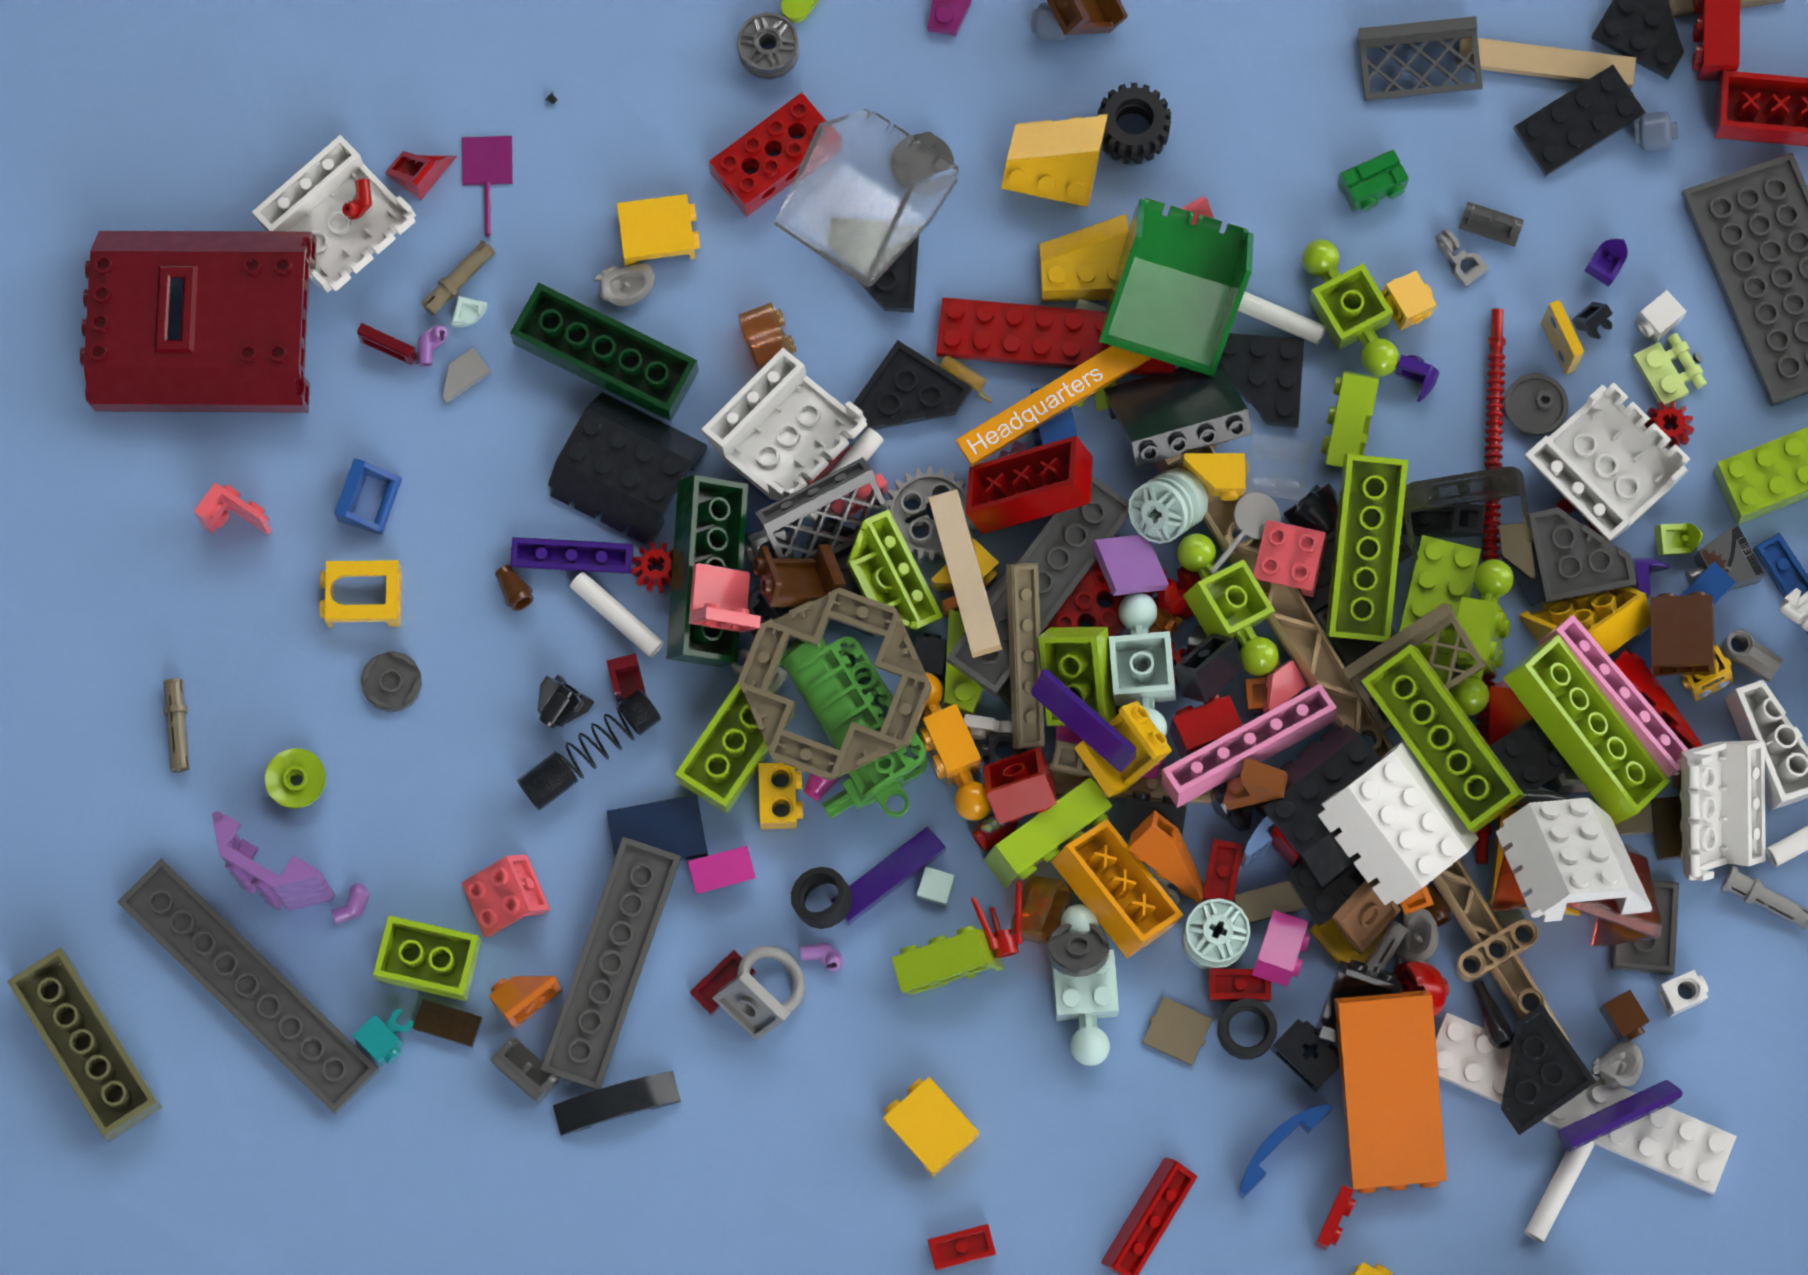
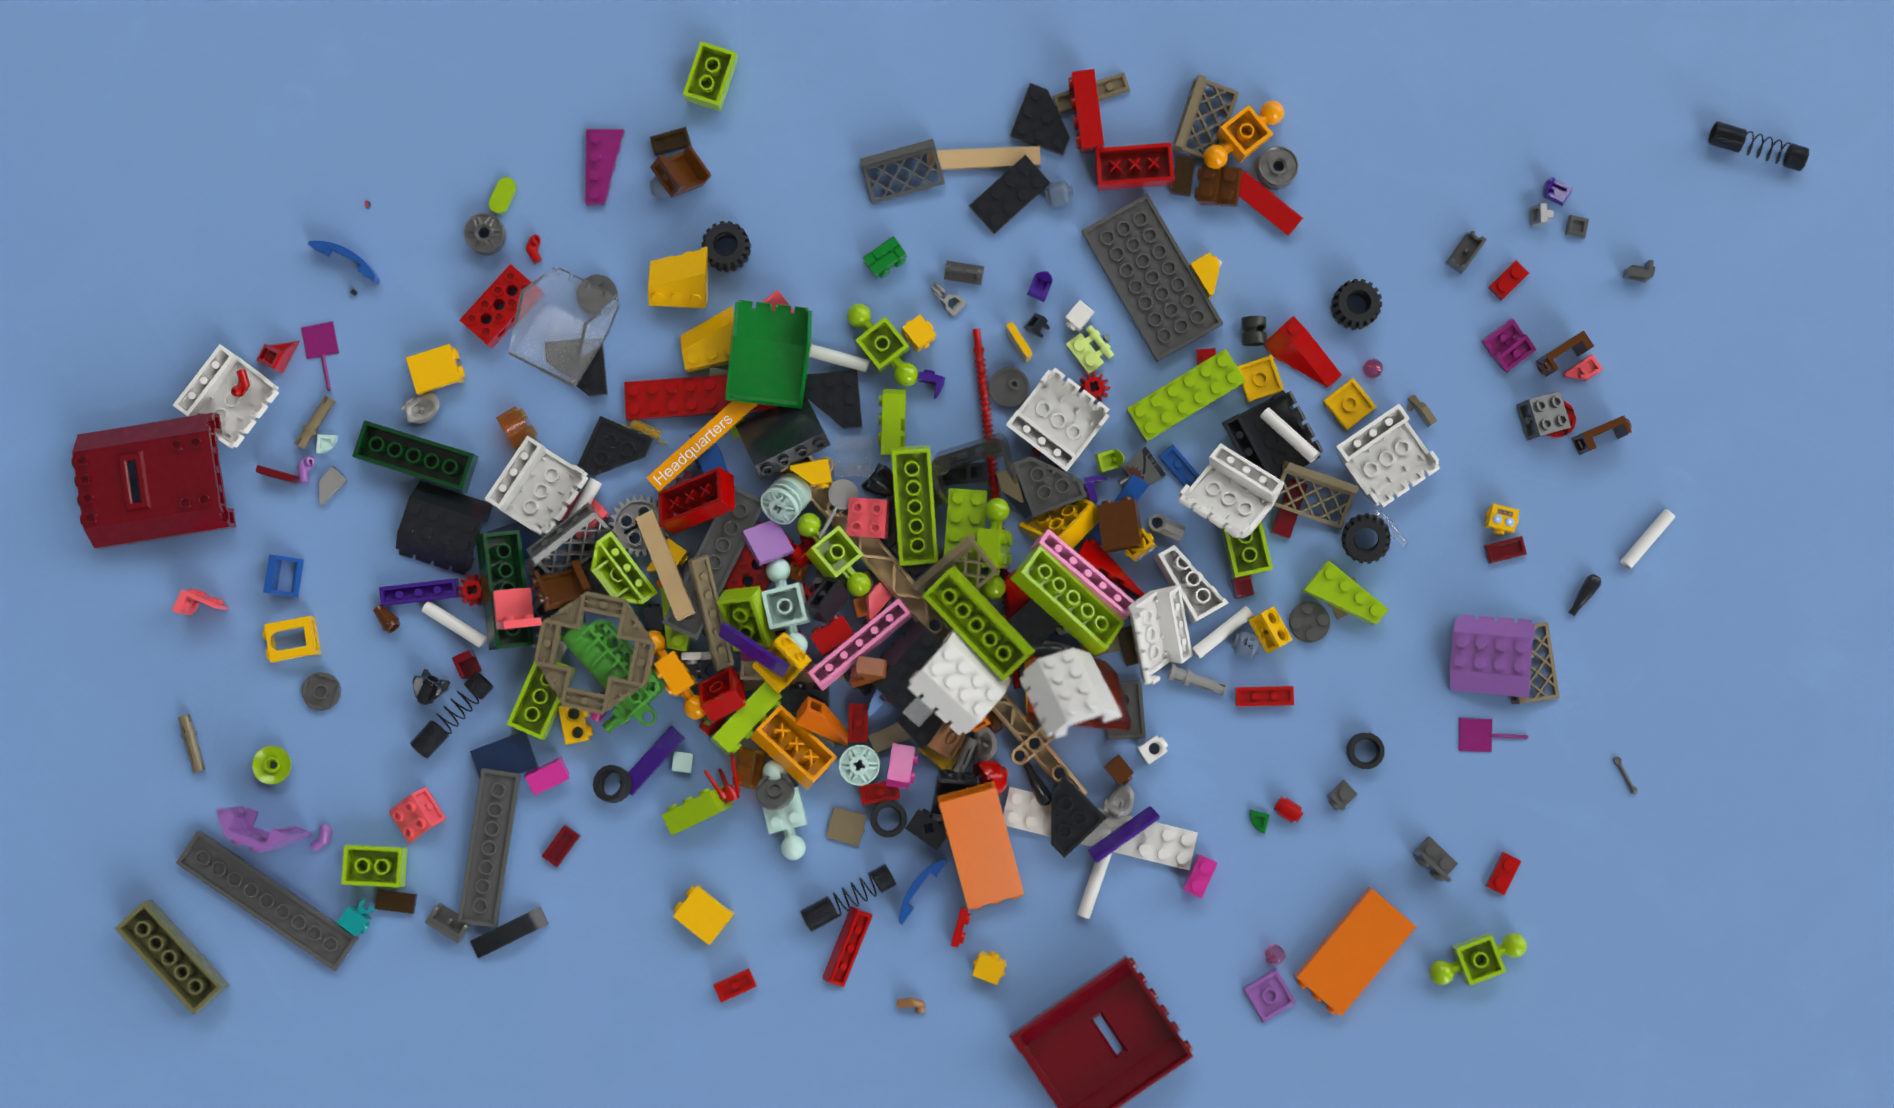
camera: 10 degrees left, 10 degrees up
(523, 25) = (327, 247): none -> blue slope
(523, 996) = (436, 879): orange slope -> none
(751, 1003) = (581, 859): light grey tile -> none
(824, 953) = (620, 816): medium lavender arm -> none
(835, 78) = (532, 248): none -> red arm
(1123, 1154) = (824, 910): none -> black piece
(1730, 1203) = (1199, 875): none -> dark pink brick

